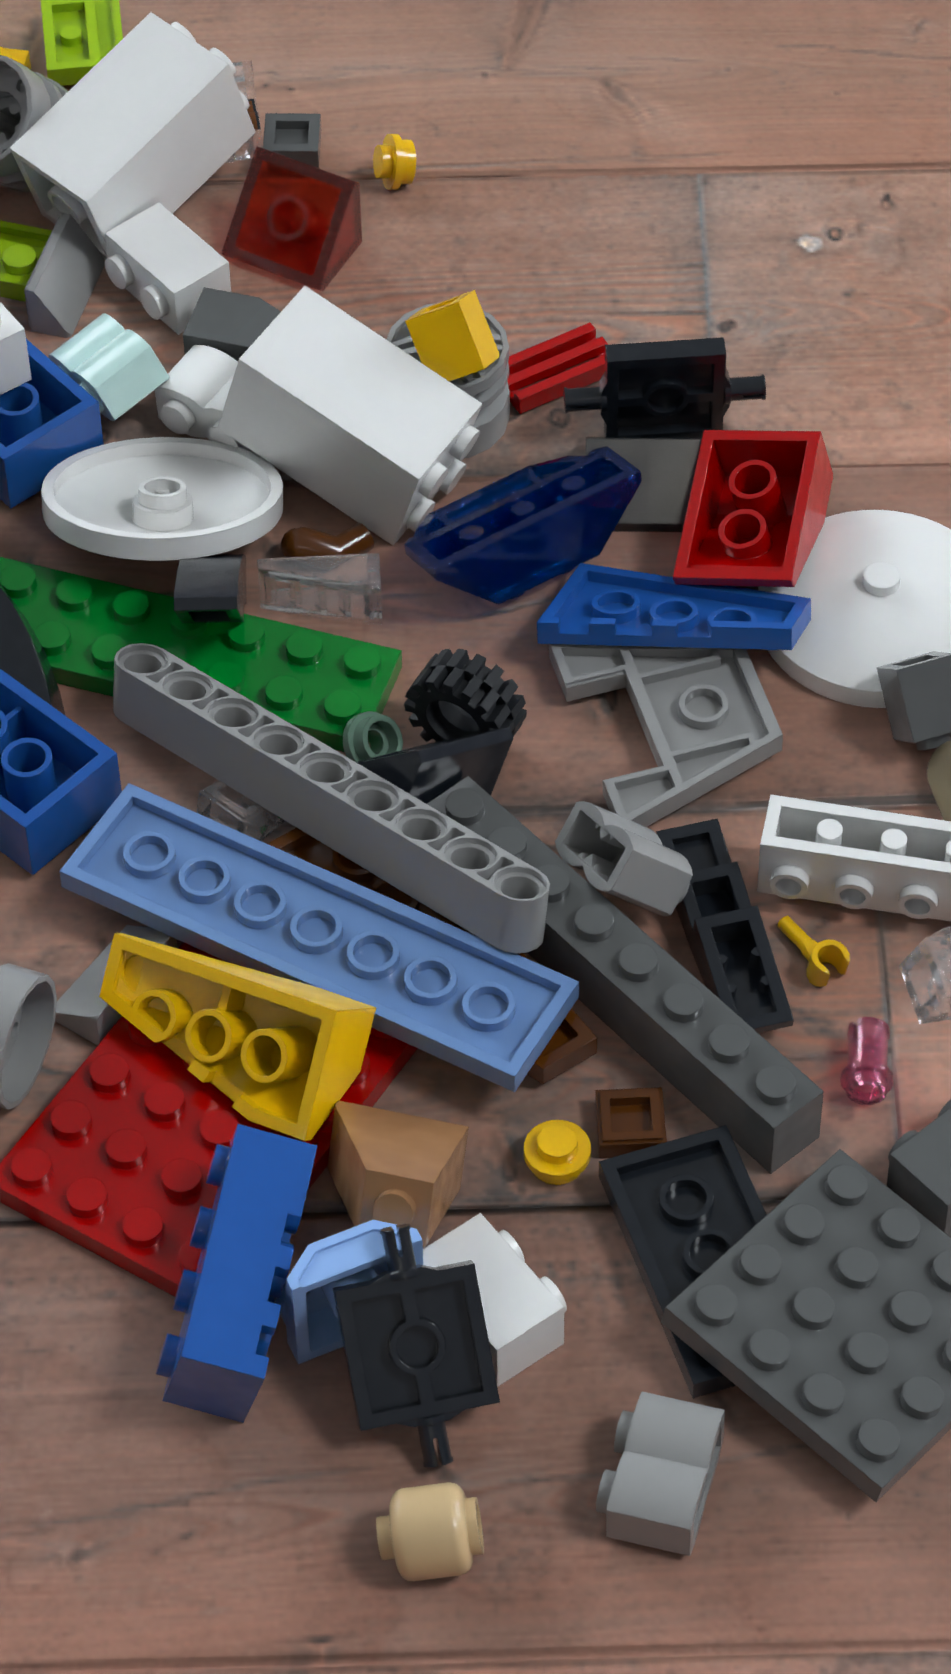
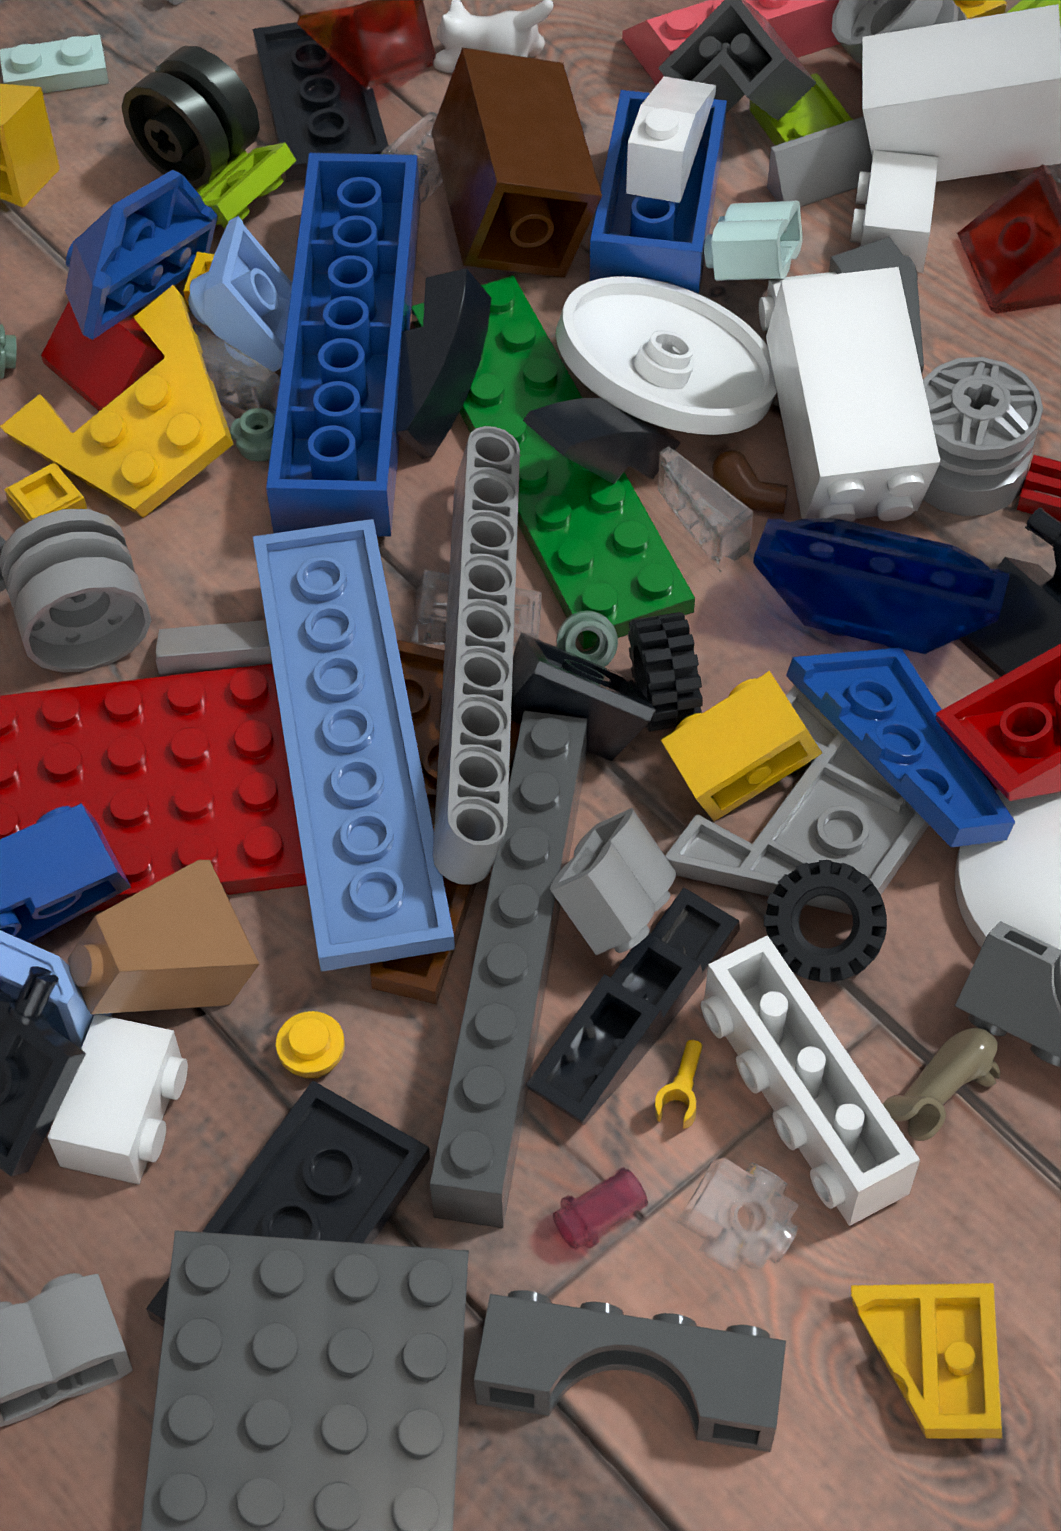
camera: 50 degrees right, 5 degrees up
(256, 1036) = (220, 765): yellow wedge -> none
(453, 337) = (975, 396): yellow panel -> none
(577, 708) = (740, 745): none -> yellow brick
(629, 1120) = (389, 1077): reddish brown tile -> none
(786, 729) = (835, 880): none -> black tyre

